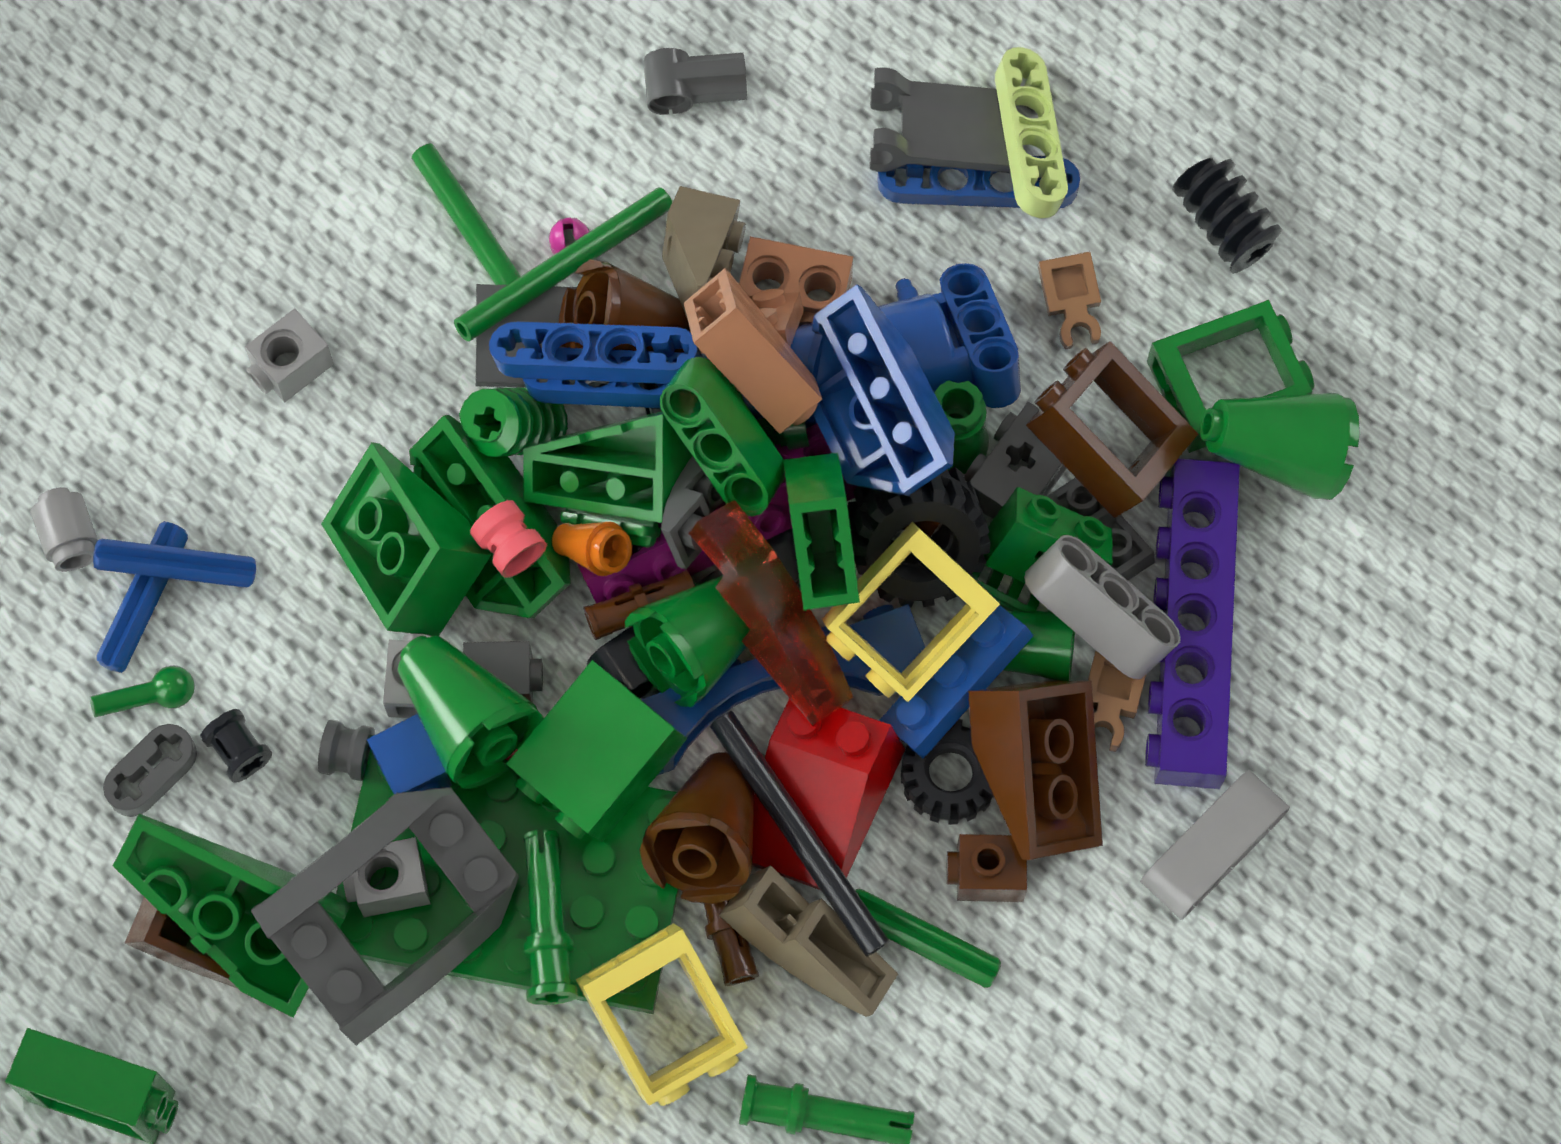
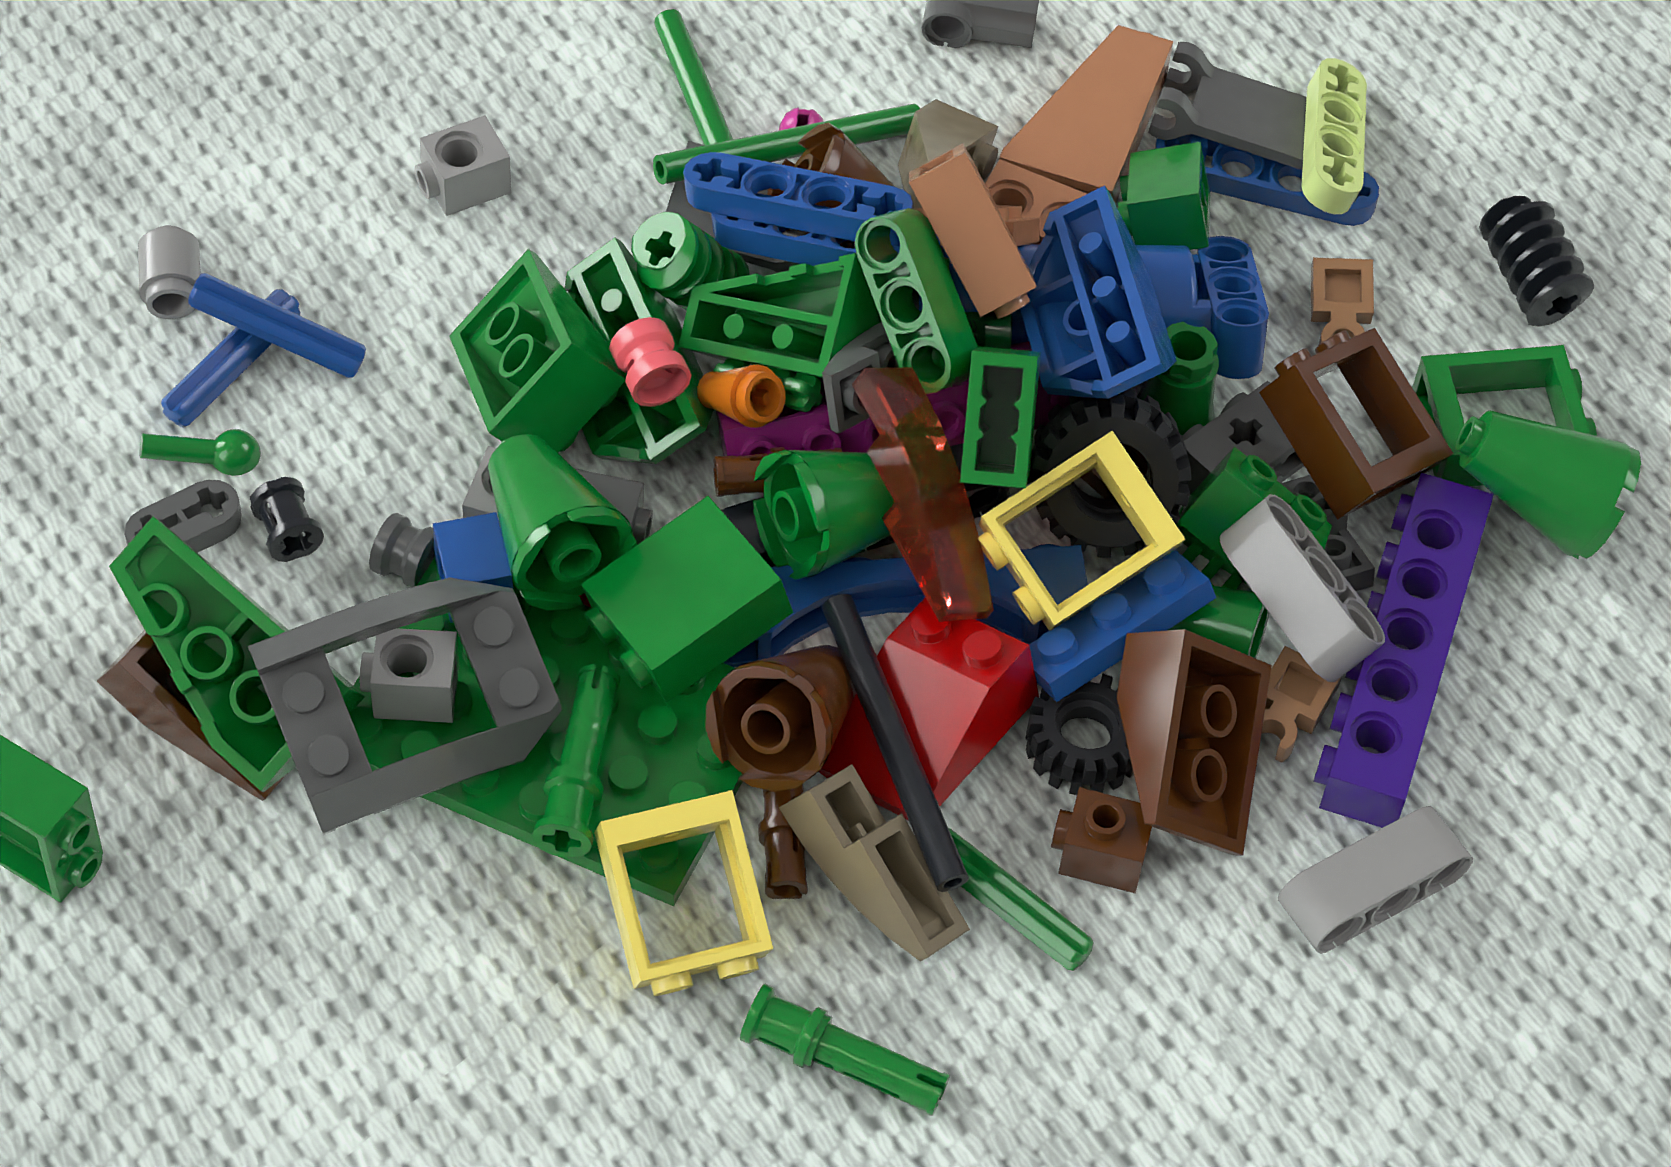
camera: 10 degrees right, 15 degrees down
(820, 172) = (1096, 115): none -> nougat slope
(902, 241) = (1167, 197): none -> green brick

